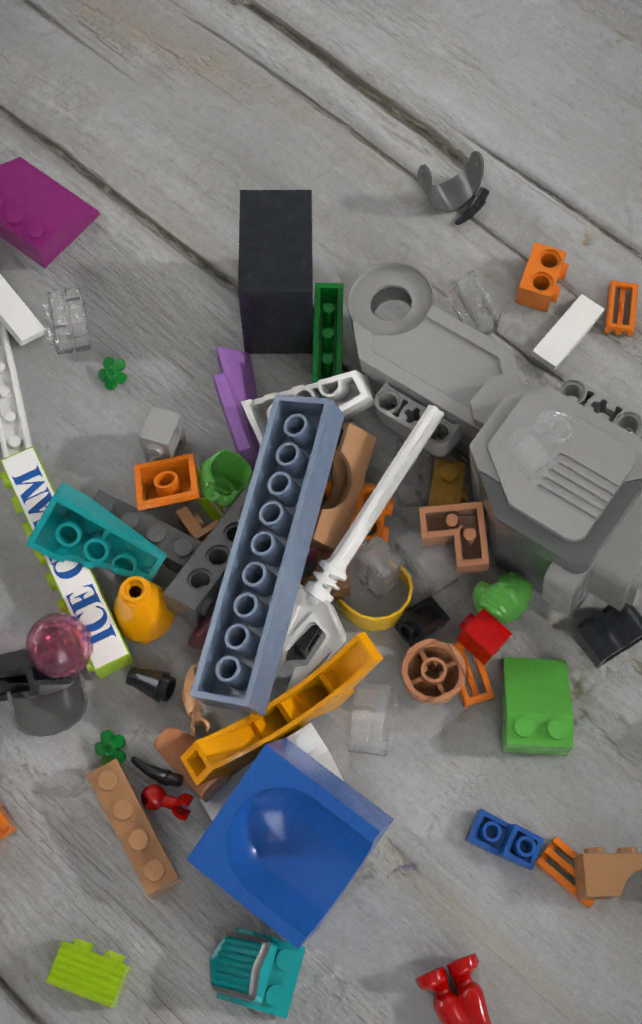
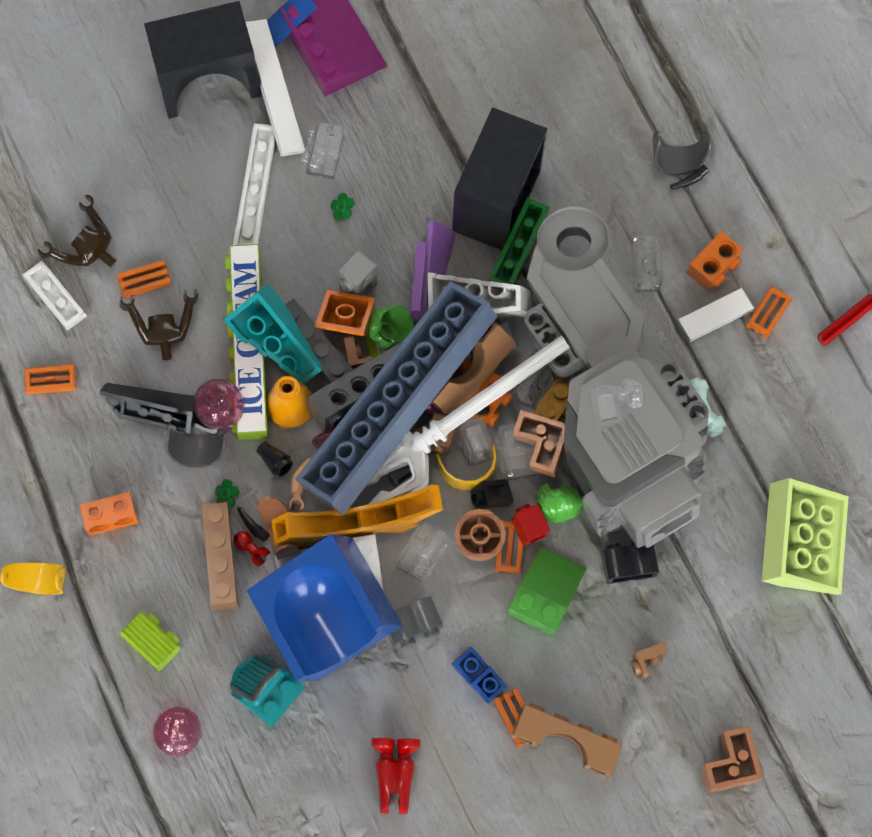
camera: 20 degrees right, 5 degrees up
(405, 803) = (418, 620): none -> dark grey brick

